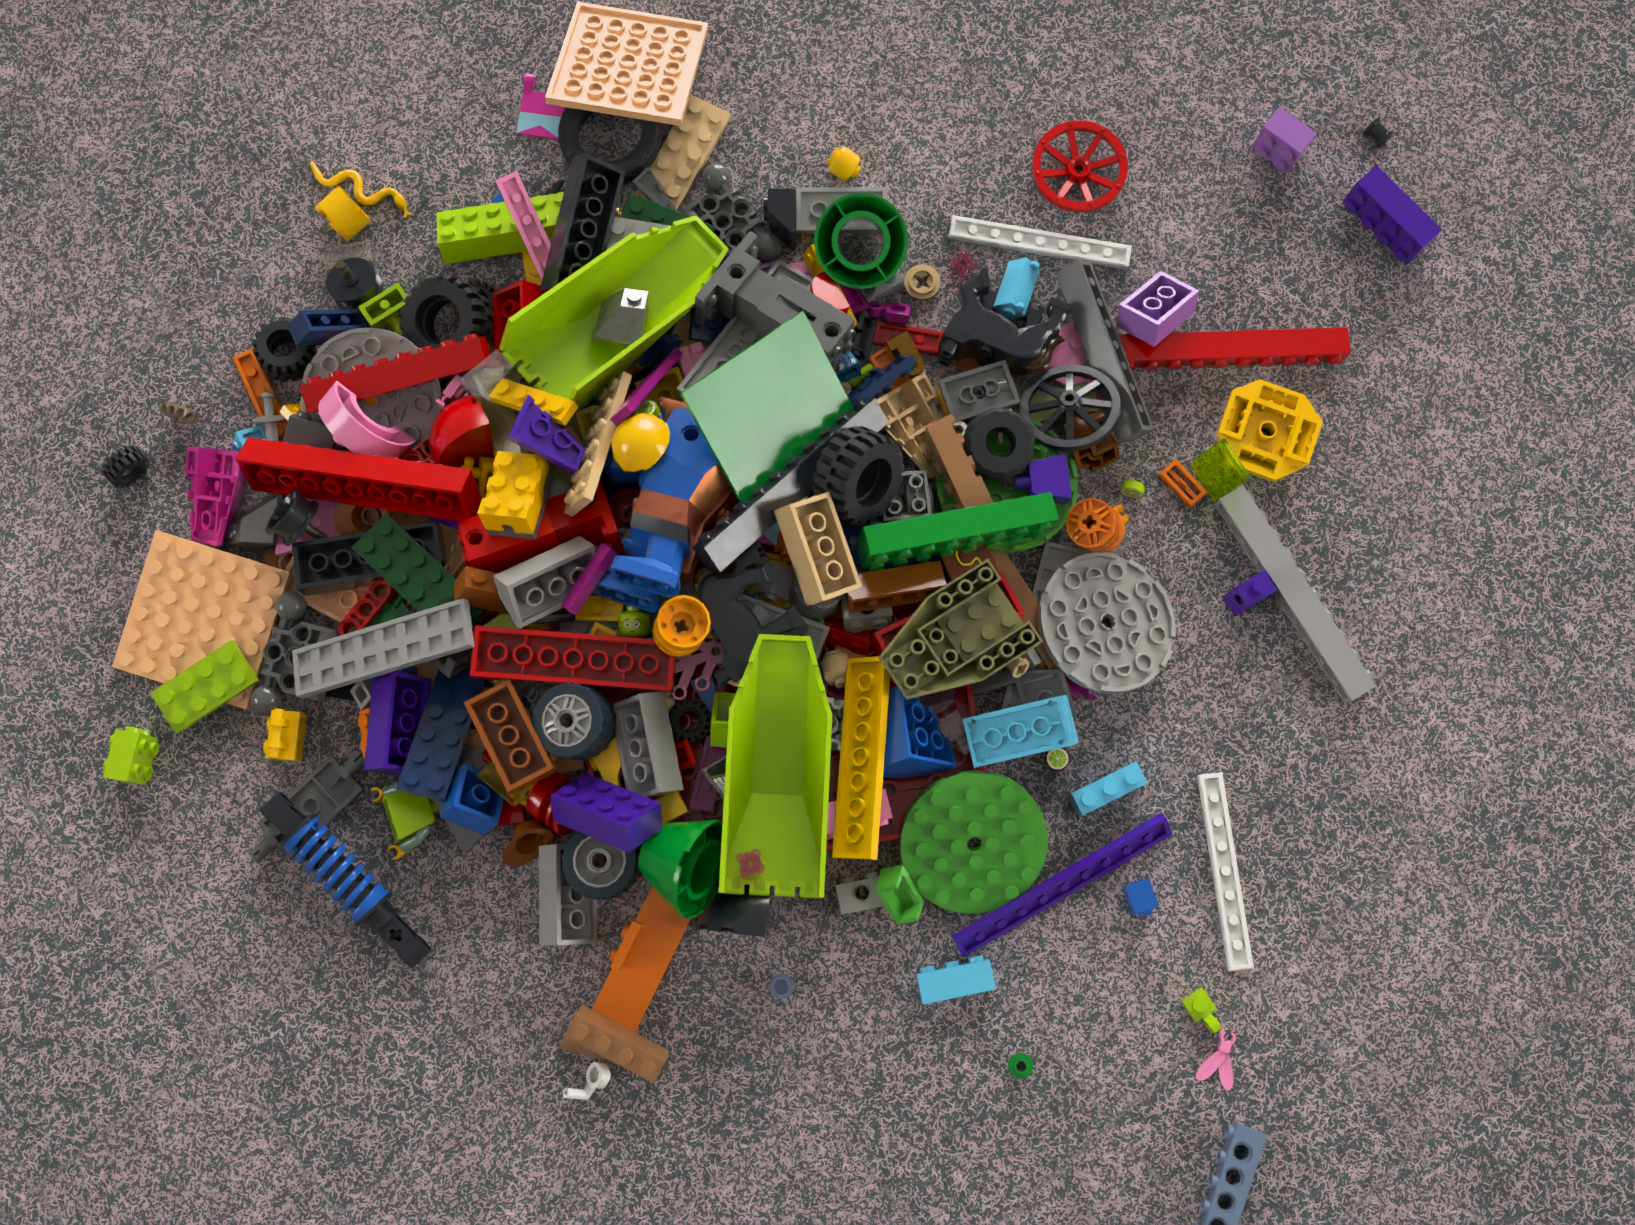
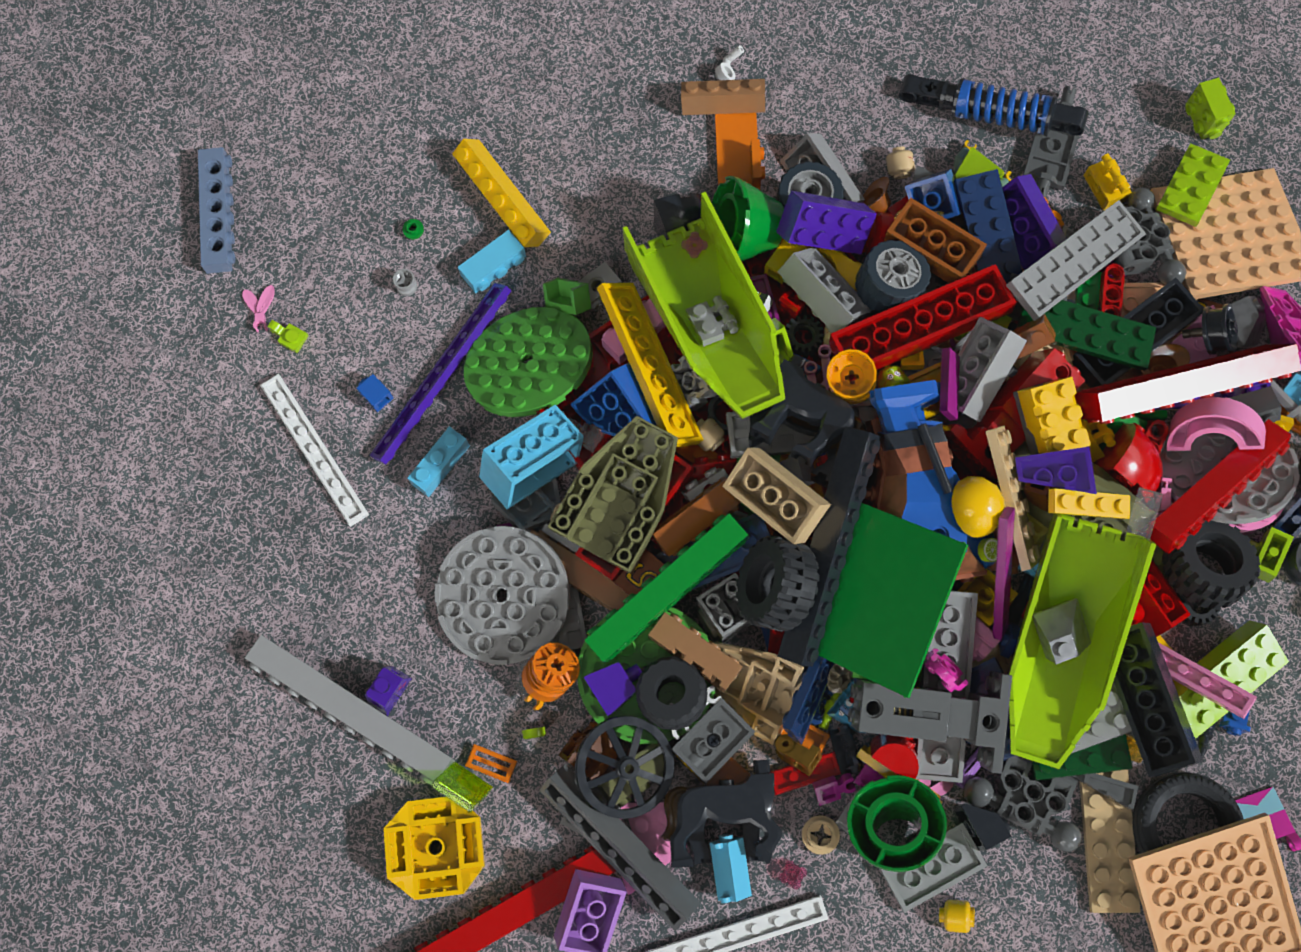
camera: 155 degrees right, 5 degrees down
(477, 869) = (900, 163): none -> tan head
(655, 498) = (935, 459): none -> black bar
(745, 331) = (946, 670): none -> dark pink plate
(781, 986) = (623, 196): sand blue plate -> none
(786, 768) = (705, 324): none -> light grey plate
(910, 1056) = (501, 193): none -> yellow brick
(1061, 1005) = (403, 278): none -> light grey wheel

